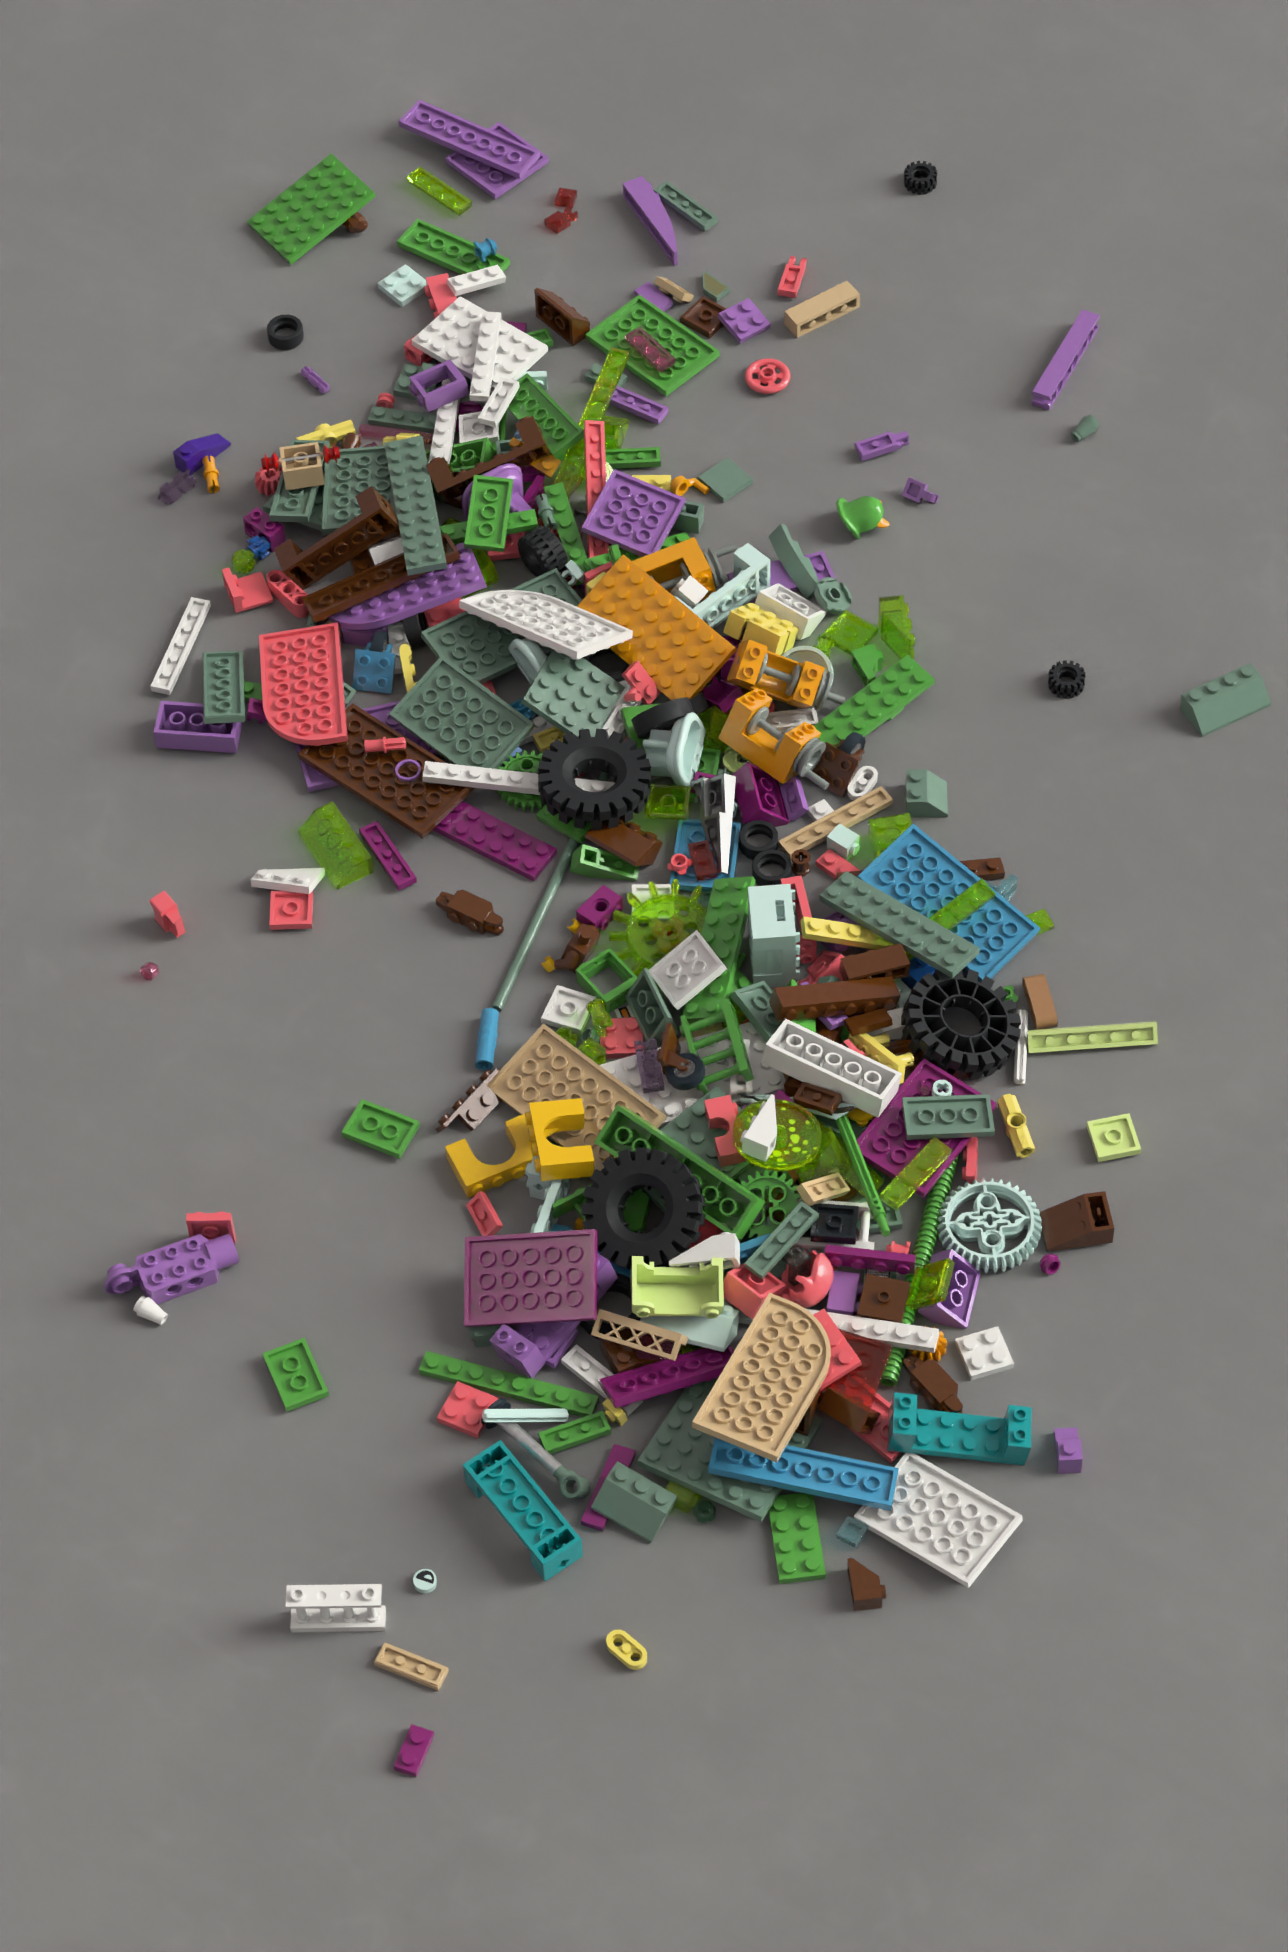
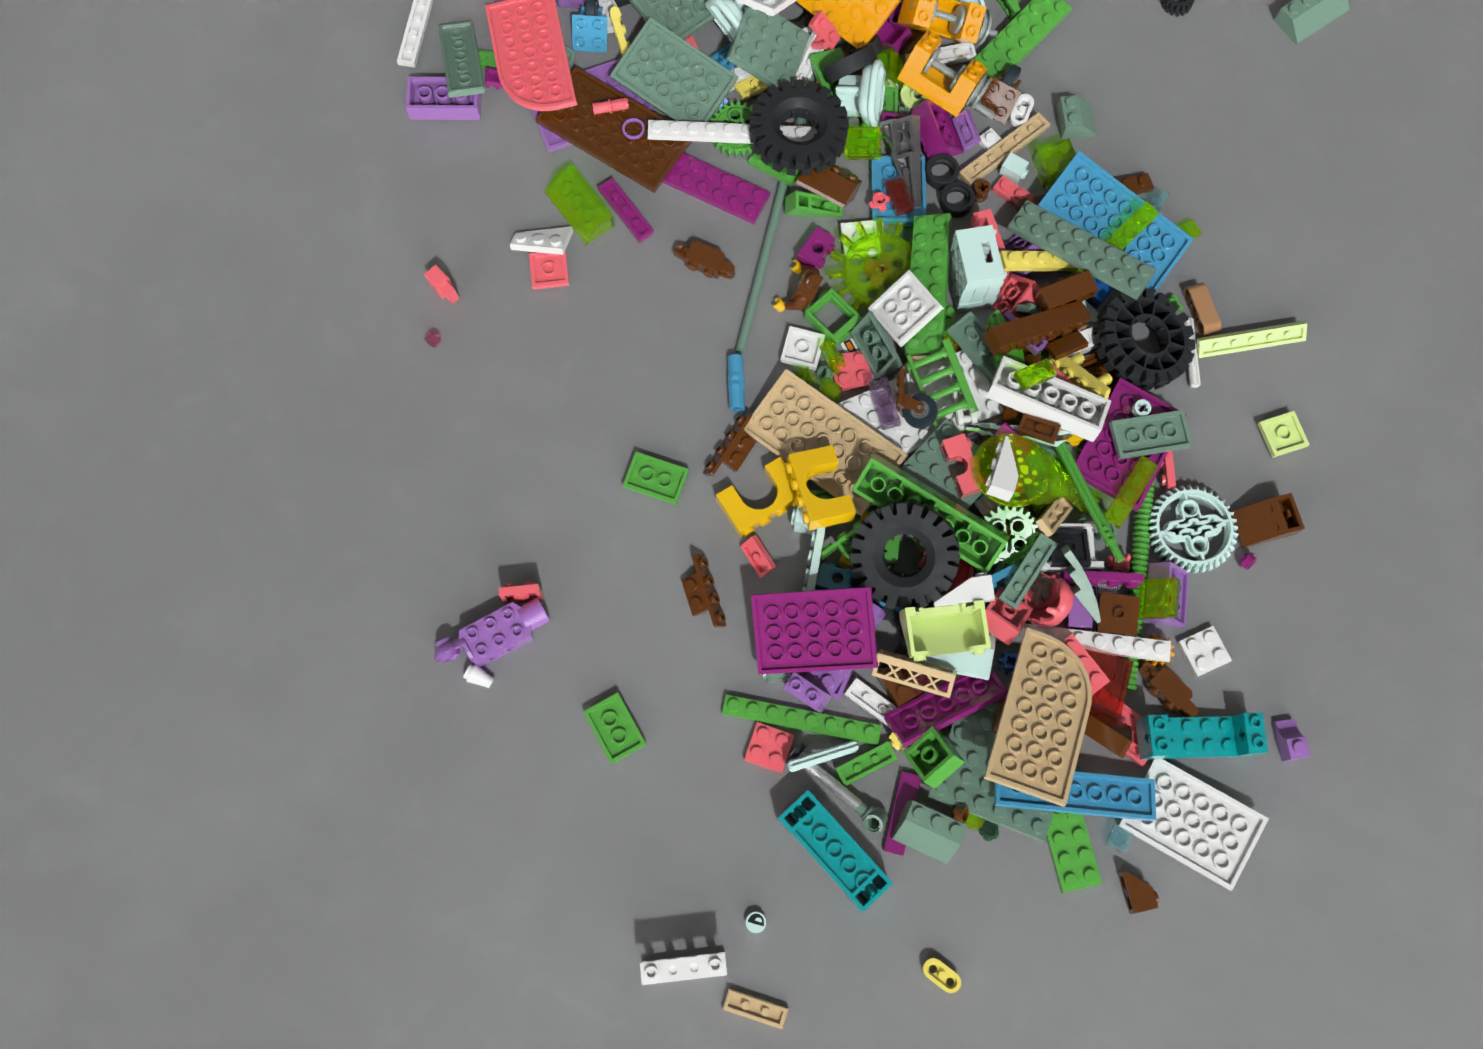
camera: 10 degrees left, 20 degrees up
(415, 1248) = (702, 593): none -> reddish brown bracket
(647, 1419) = (933, 757): none -> bright green brick
(675, 1482) = (960, 813): none -> reddish brown hinge
(815, 1037) = (1035, 374): none -> clear neon green plate
(843, 1265) = (1082, 588): none -> slope
(1018, 1134) = (1204, 440): light yellow piece -> none

